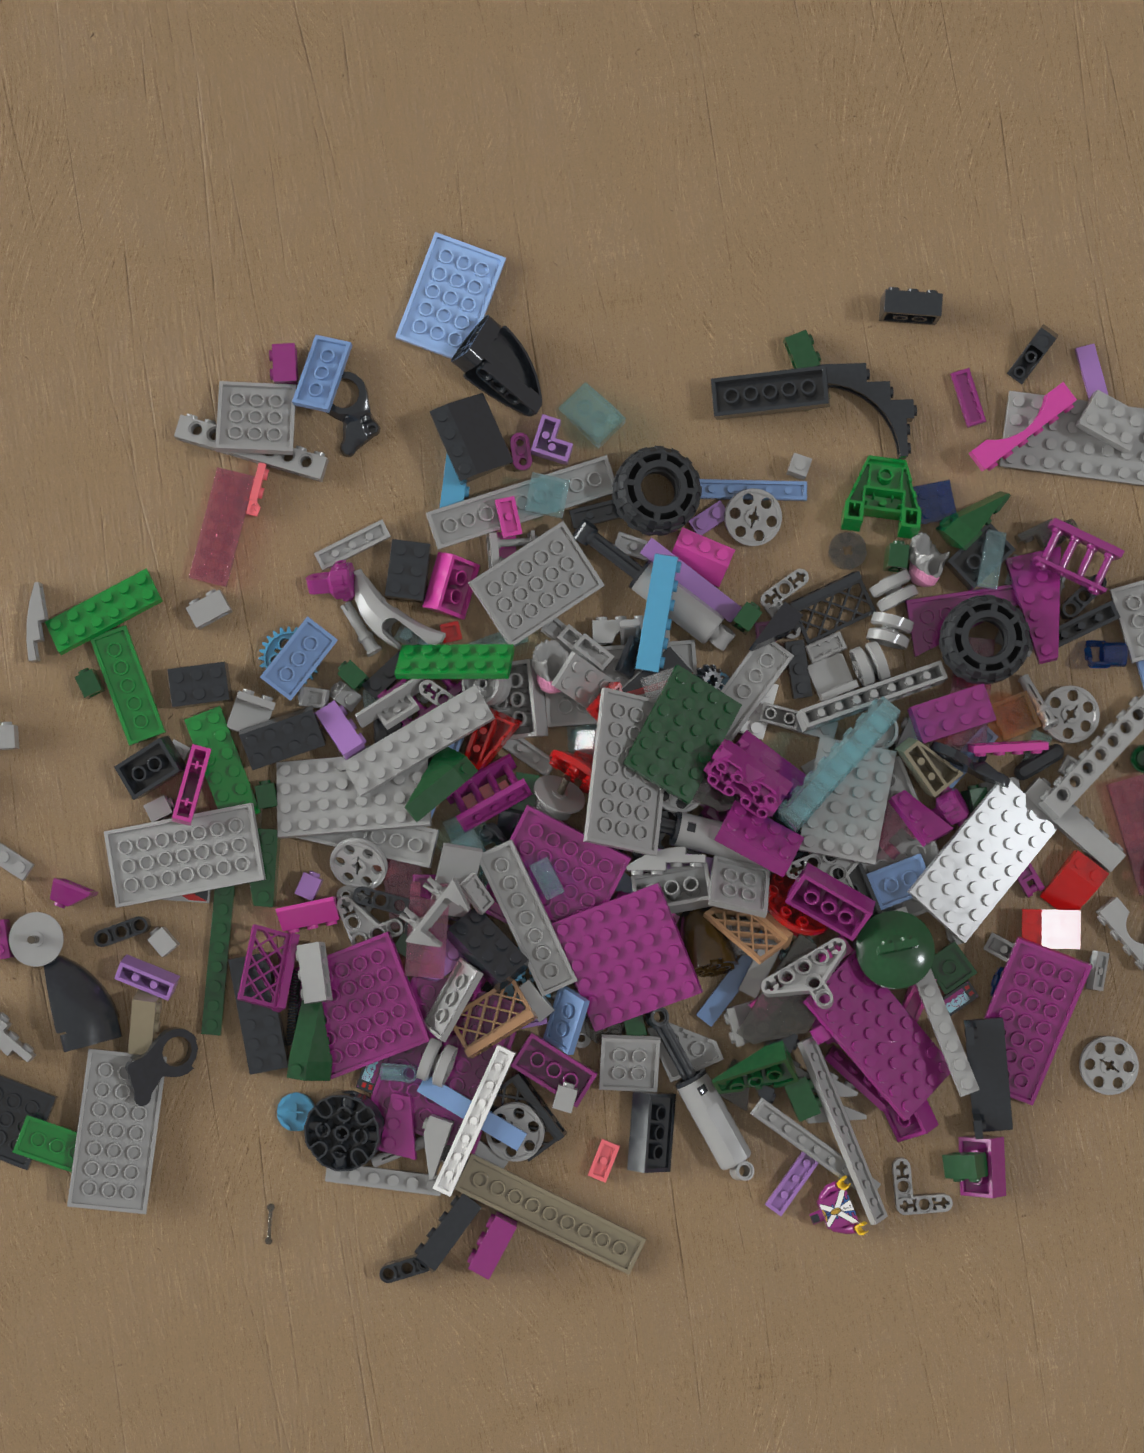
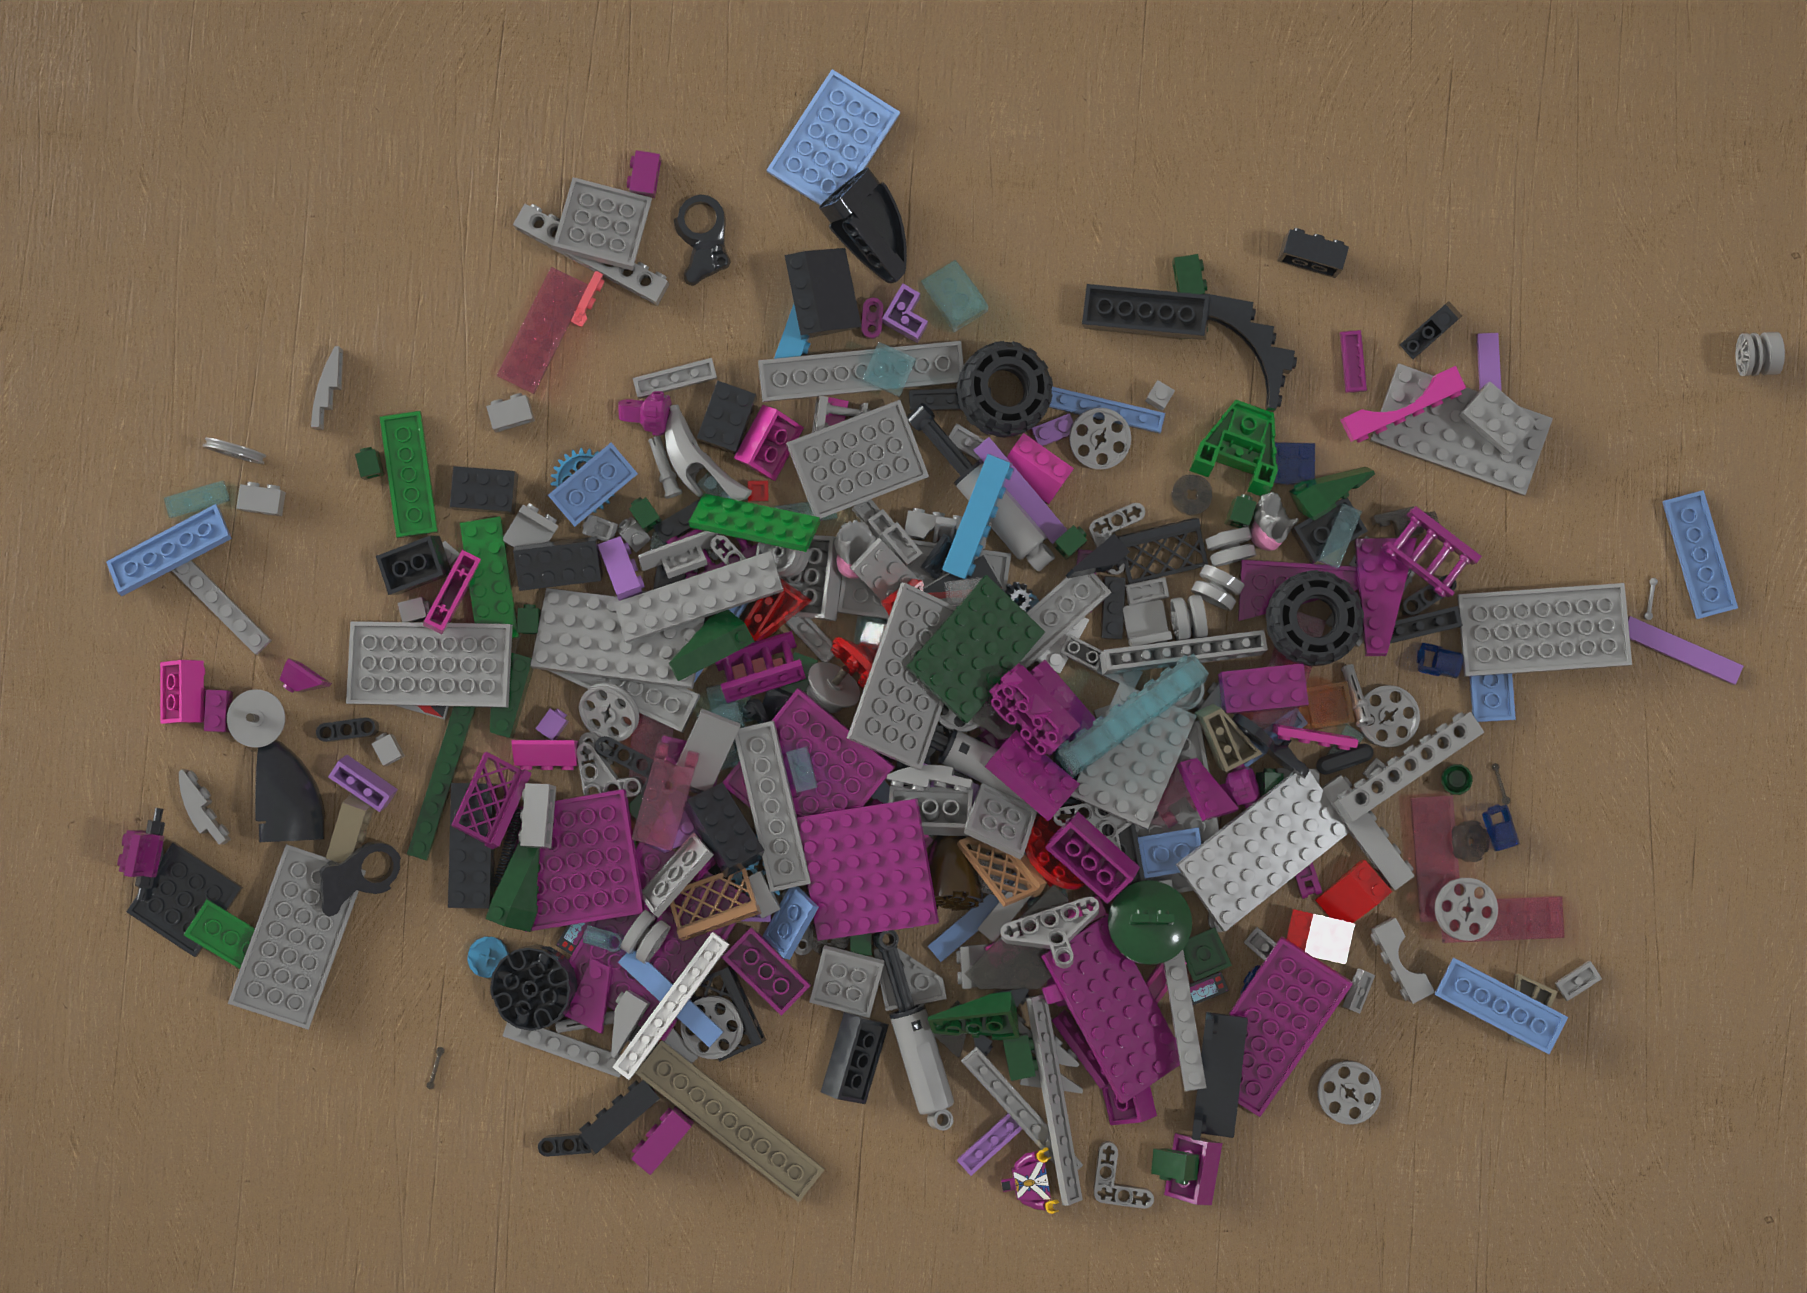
camera: 10 degrees right, 0 degrees up
(103, 611) = (400, 392): green plate -> none
(322, 373) = (681, 192): medium blue plate -> none
(444, 896) = (690, 764): light grey hose -> none
(477, 893) = (725, 769): light grey plate -> none
(508, 517) = (843, 383): dark pink plate -> none
(565, 1097) = (771, 1002): light grey brick -> none
(603, 1160) = (798, 1077): coral plate -> none

